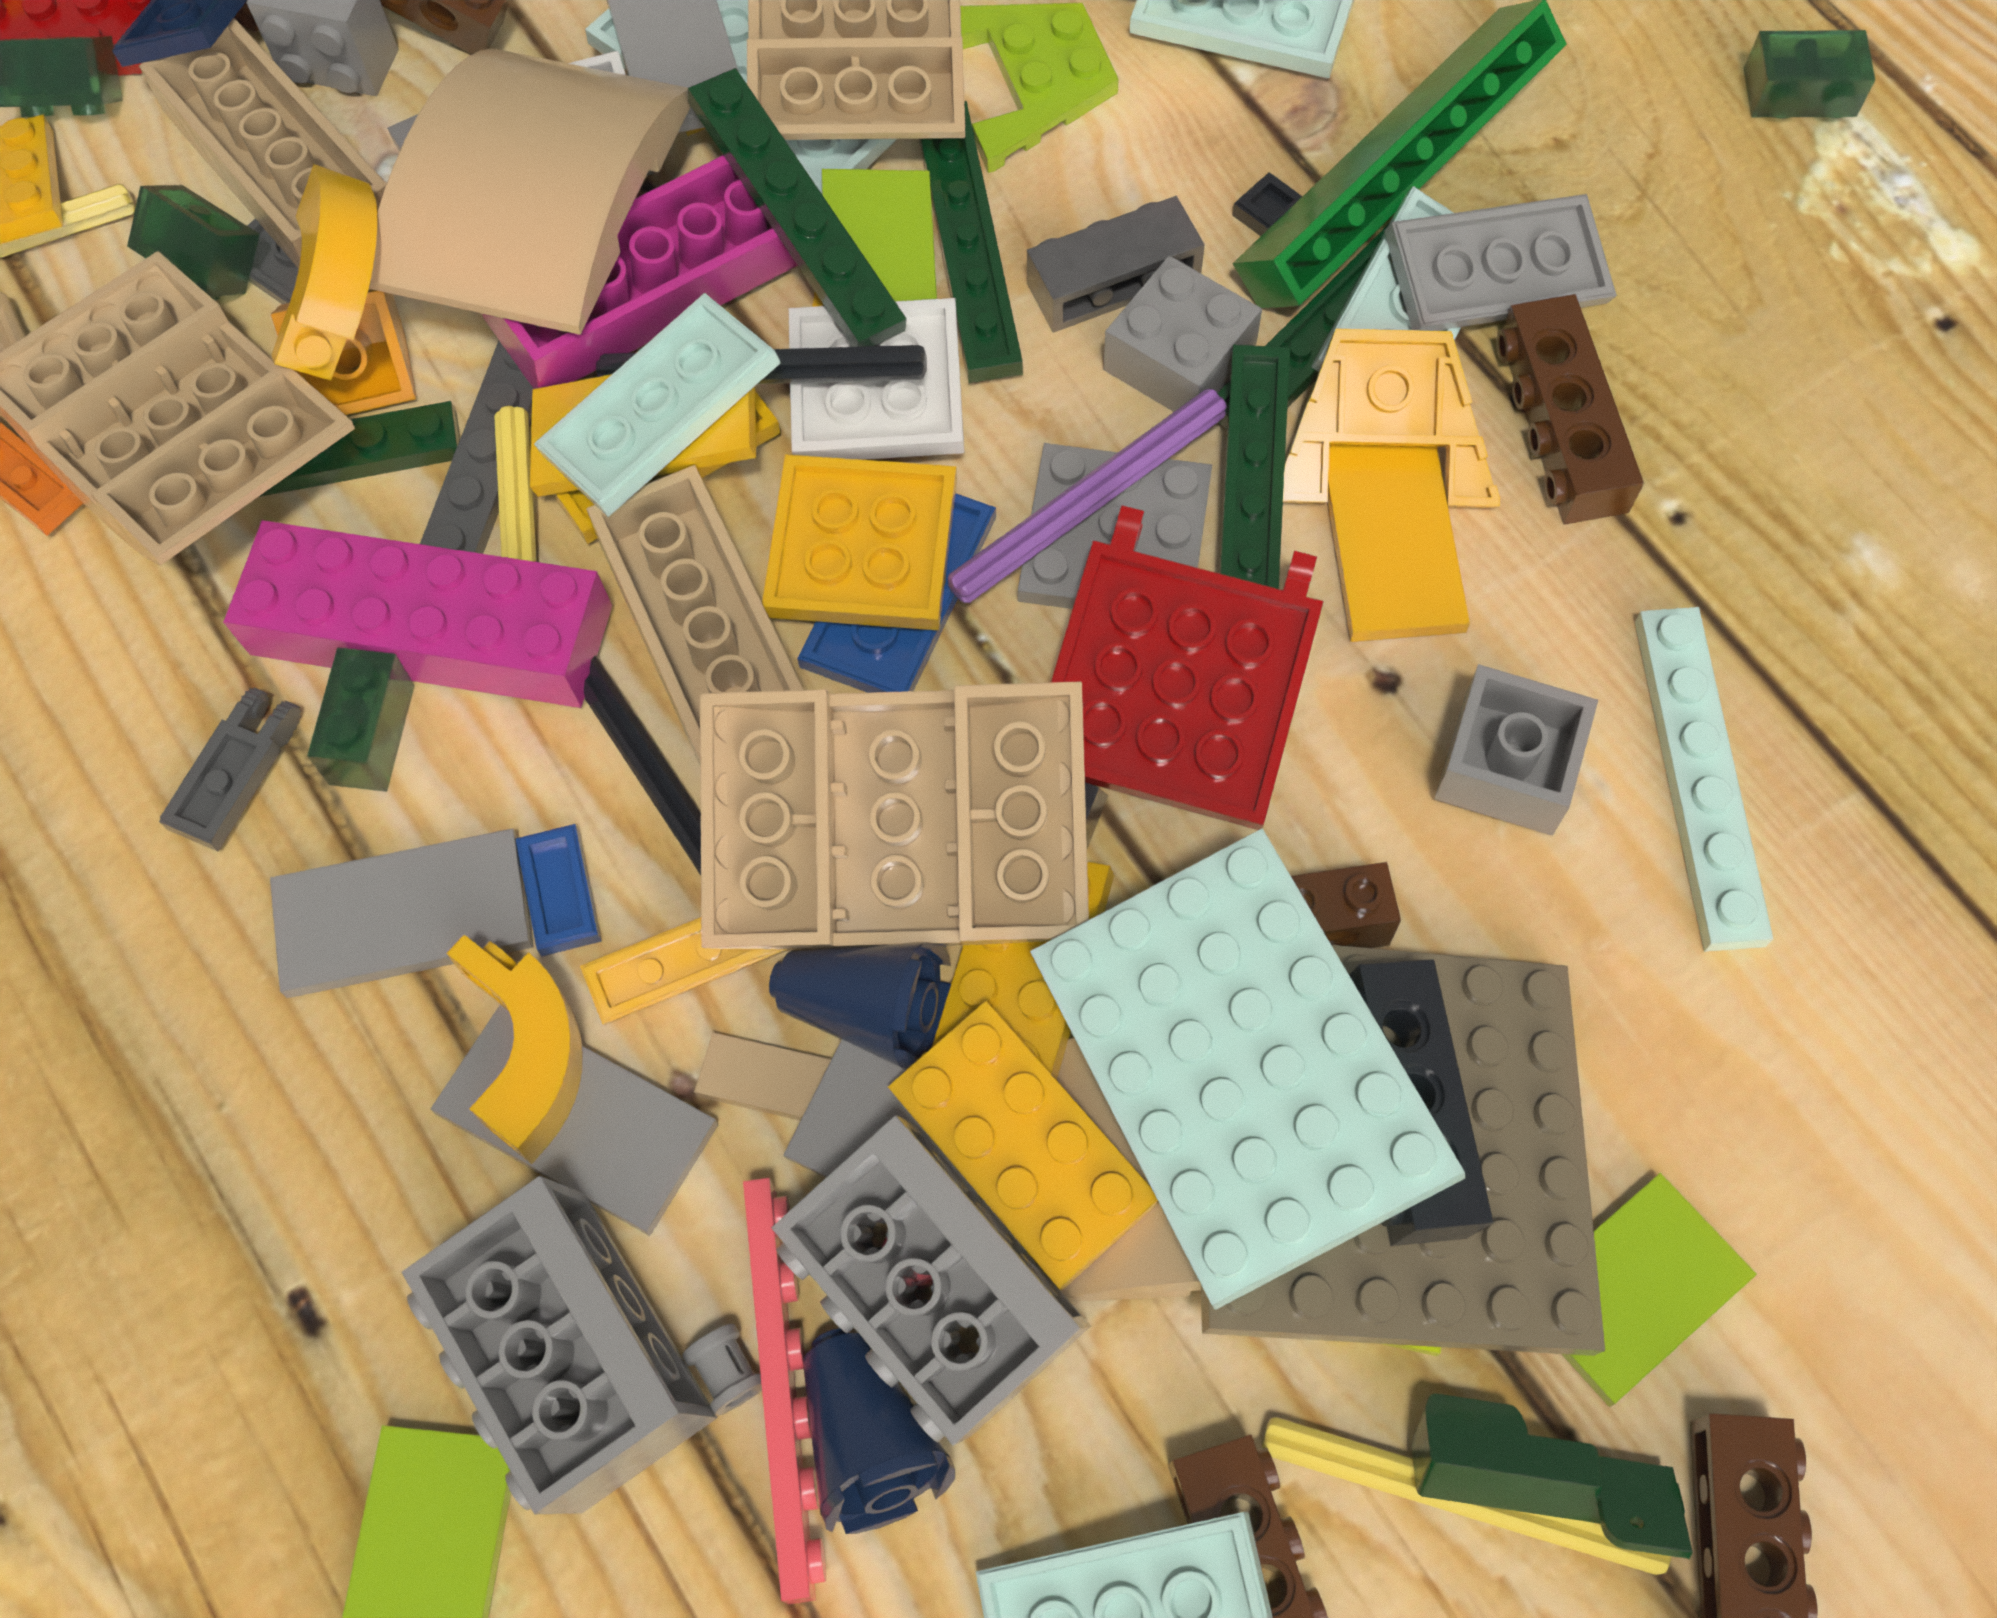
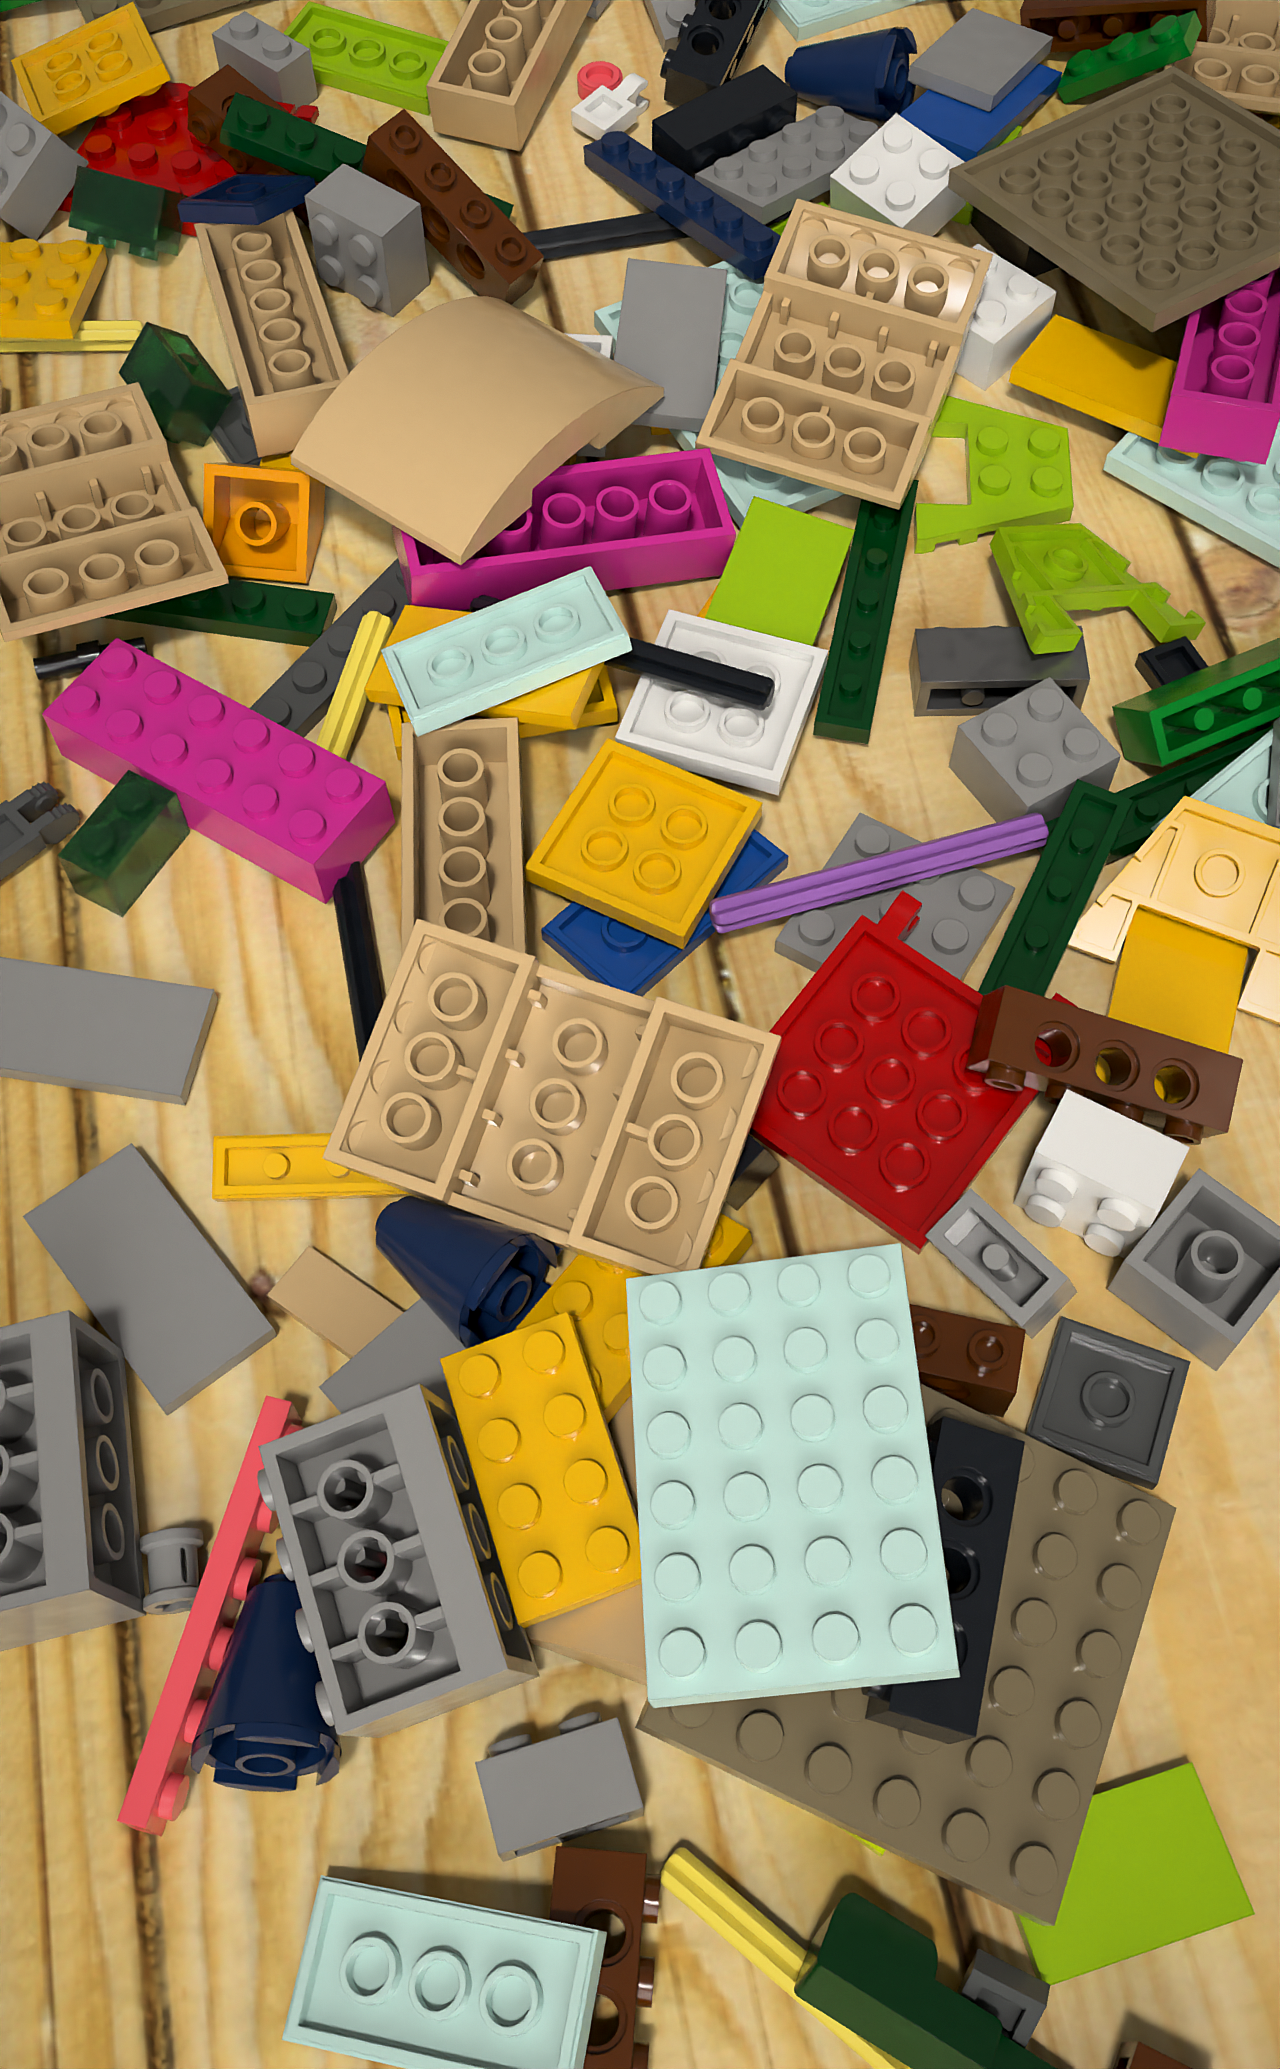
camera: 20 degrees right, 5 degrees down
(232, 549) = (76, 660): none -> black bar
(333, 274) = (263, 441): yellow arch -> none
(545, 1063) = (141, 1208): yellow arch -> none
(558, 890) = (230, 1061): blue tile -> none
(796, 210) = (711, 524): dark green plate -> none
(1140, 144) = (1073, 569): none -> lime wing
(1148, 1410) = (558, 1786): none -> light grey brick
(1340, 811) = (1001, 1263): none -> light grey brick
(1395, 702) = (1099, 1175): none -> white brick
(1445, 584) = (1198, 1078): none -> reddish brown brick
(1472, 897) = (1108, 1402): none -> dark grey tile
(1588, 1421) = (1006, 1994): none -> dark grey plate

